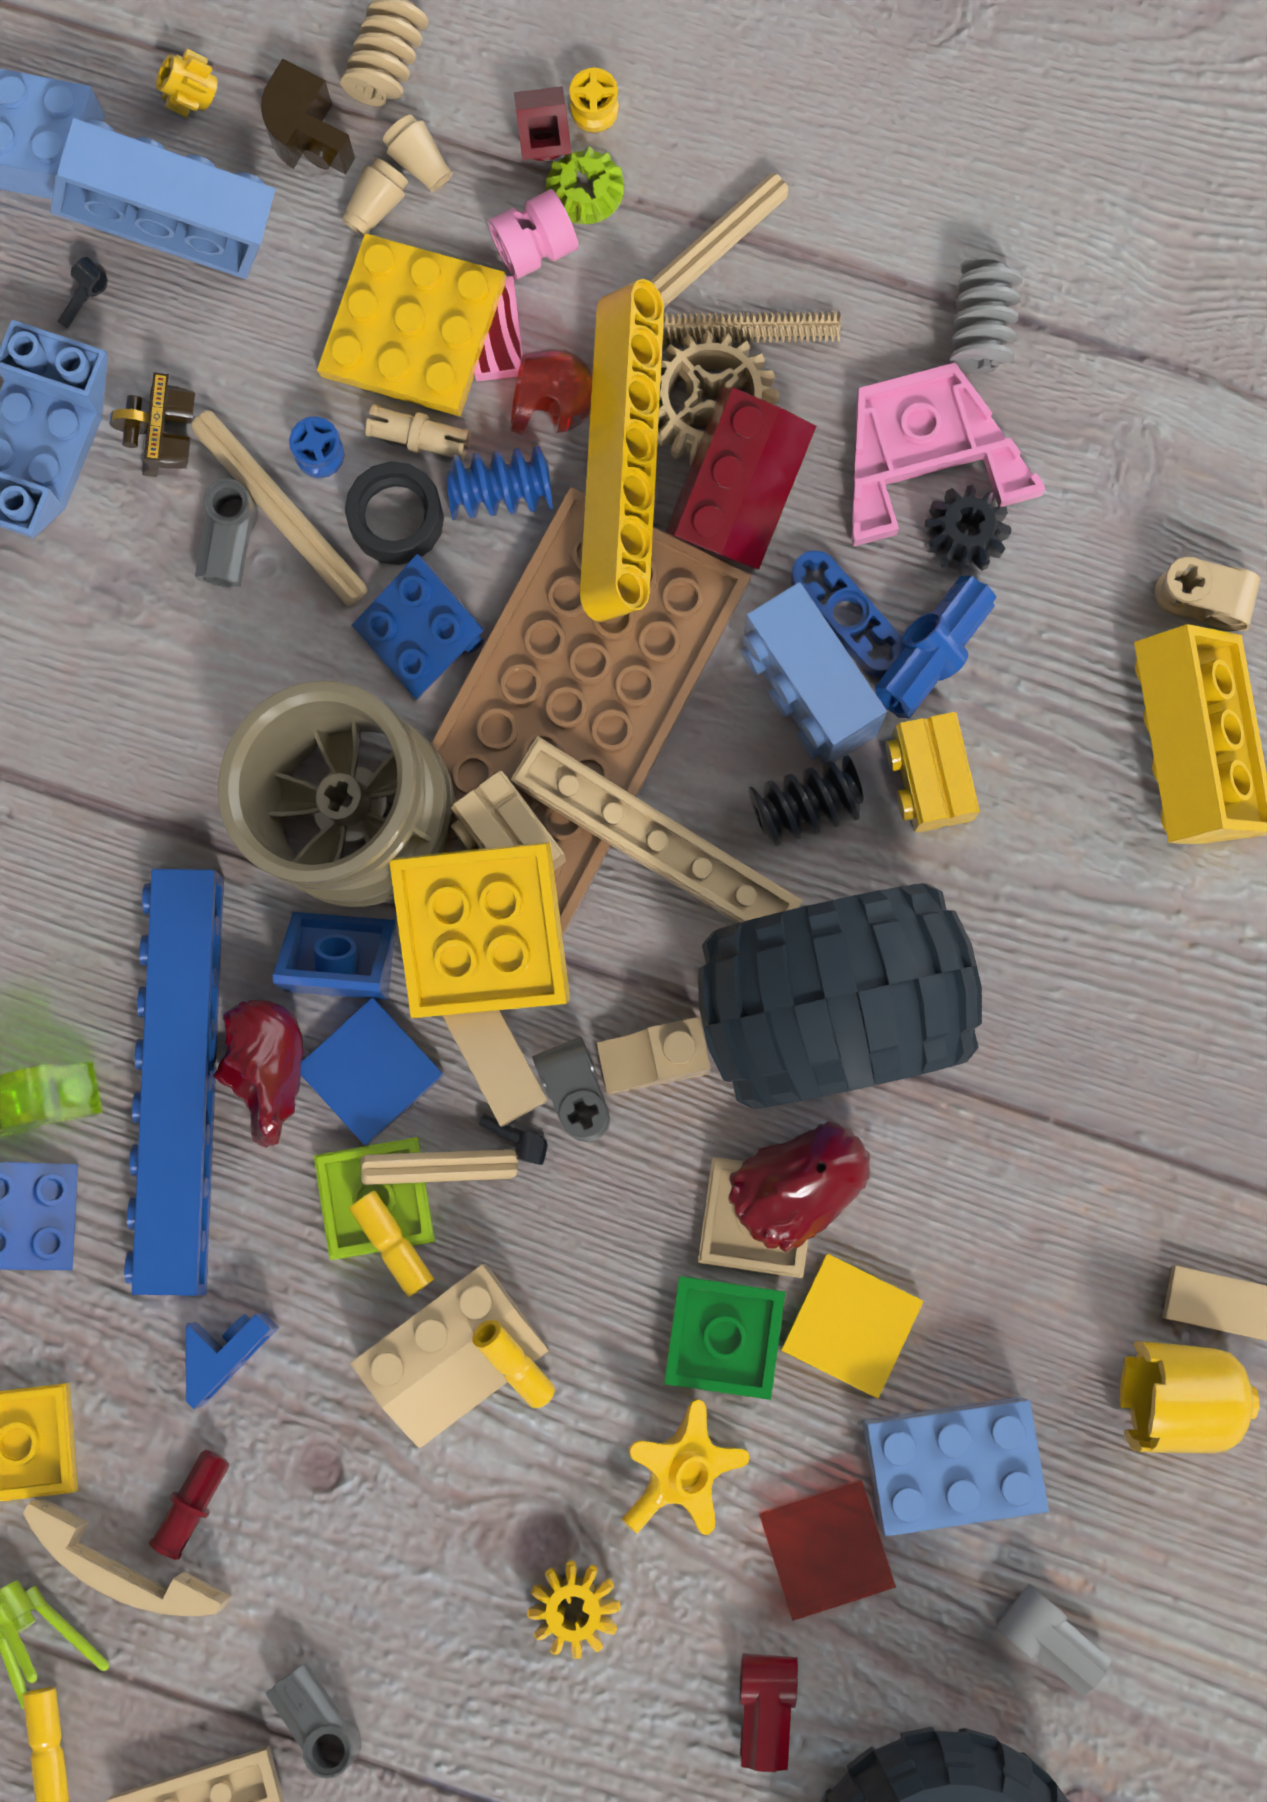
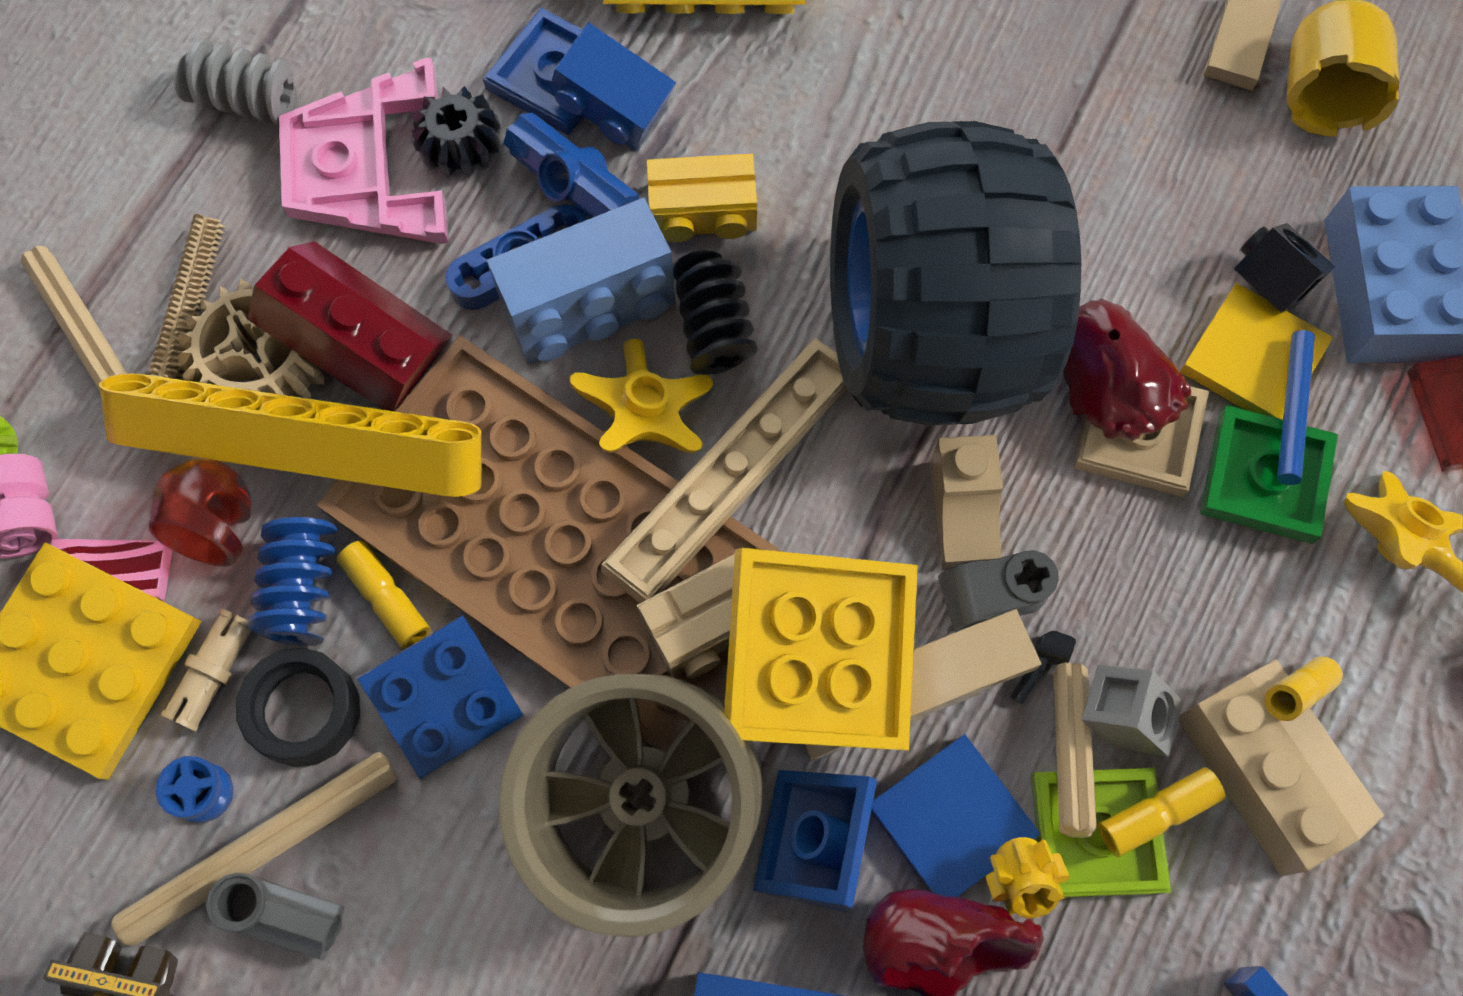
camera: 85 degrees left, 10 degrees down
(320, 1130) = (1027, 877): none -> yellow gear
(475, 1213) = (1132, 710): none -> light grey brick
(507, 556) = (379, 589): none -> yellow piece
(707, 750) = (643, 403): none -> yellow animal
(790, 1356) = (1296, 408): none -> blue bar
(941, 1342) = (1282, 266): none -> black brick
(1034, 665) = (610, 87): none -> blue brick
(1061, 610) = (527, 69): none -> blue tile

